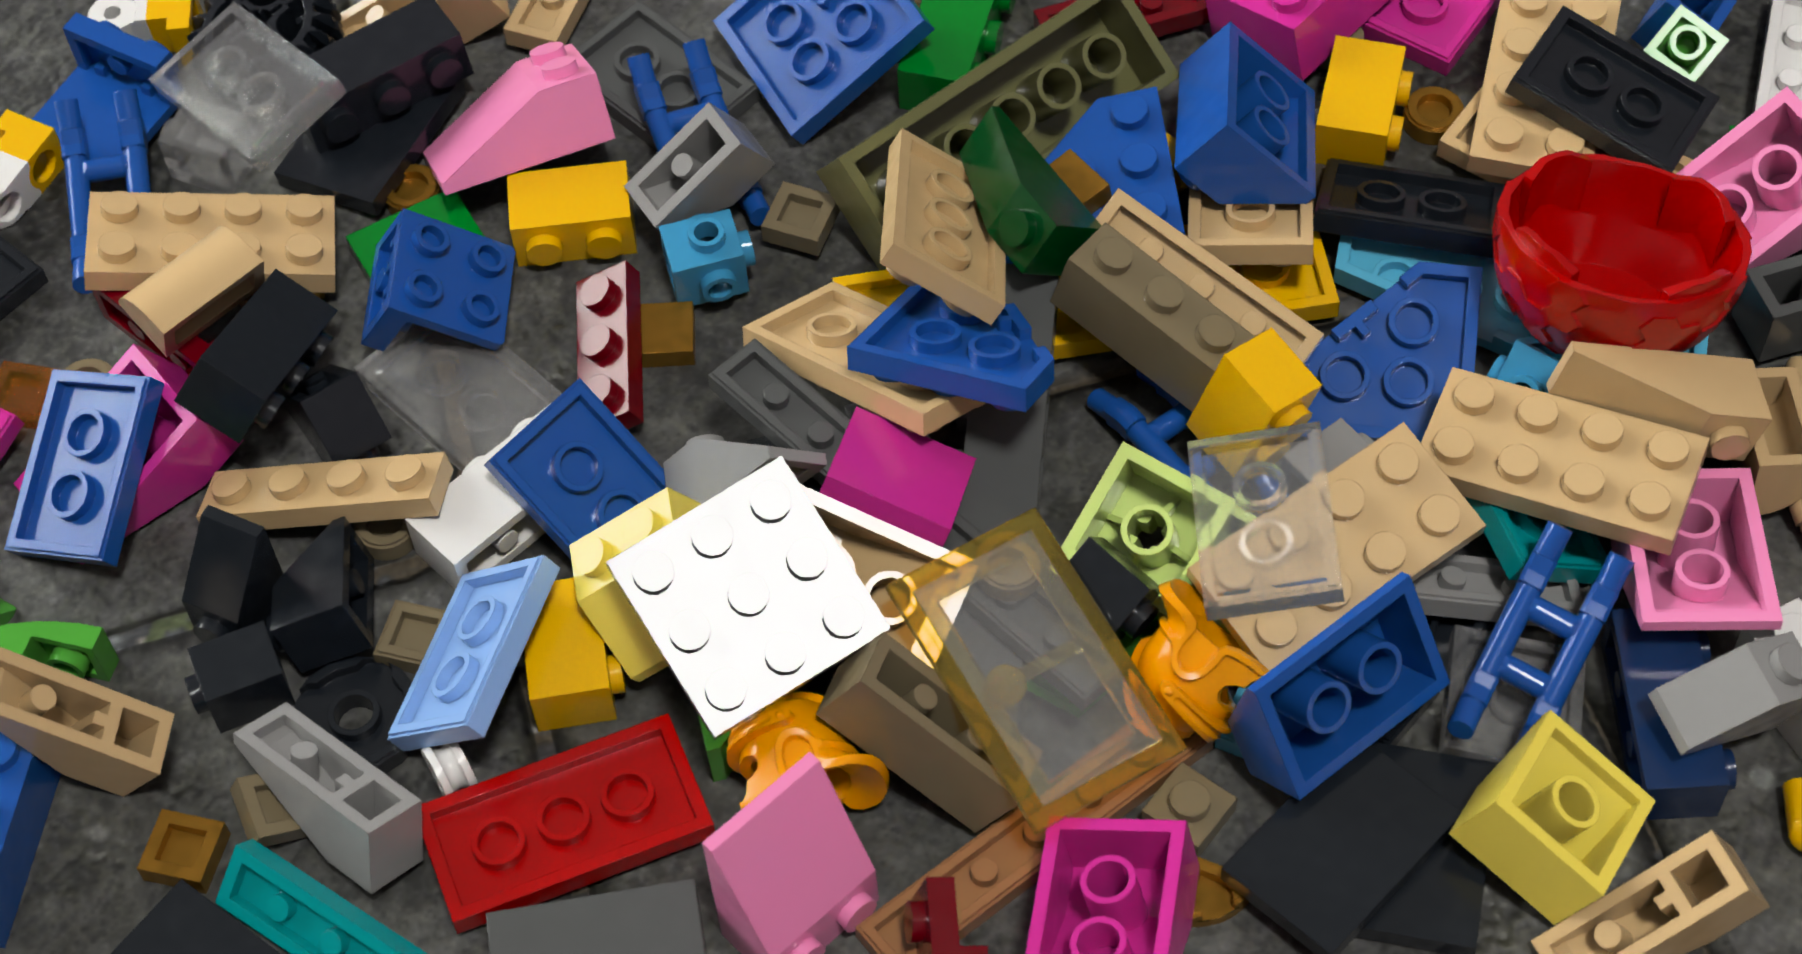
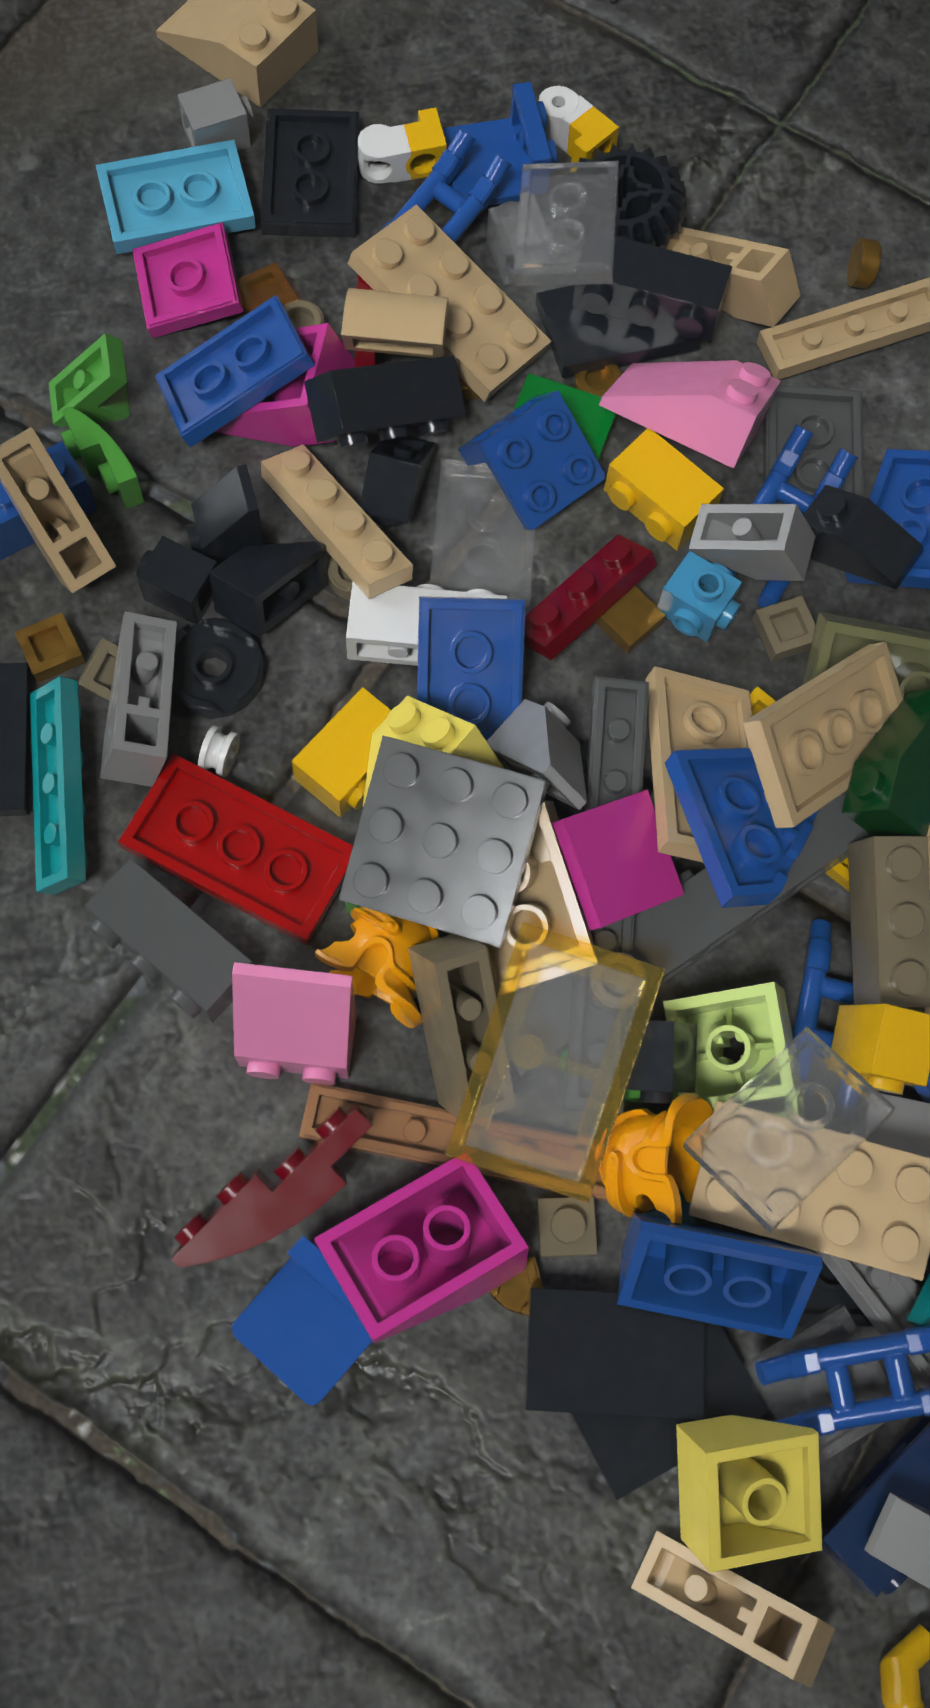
camera: 40 degrees right, 15 degrees up
(407, 635) = (293, 656): dark tan tile -> none
(473, 654) = (293, 702): light blue tile -> none
(780, 92) = (860, 538): none -> black slope

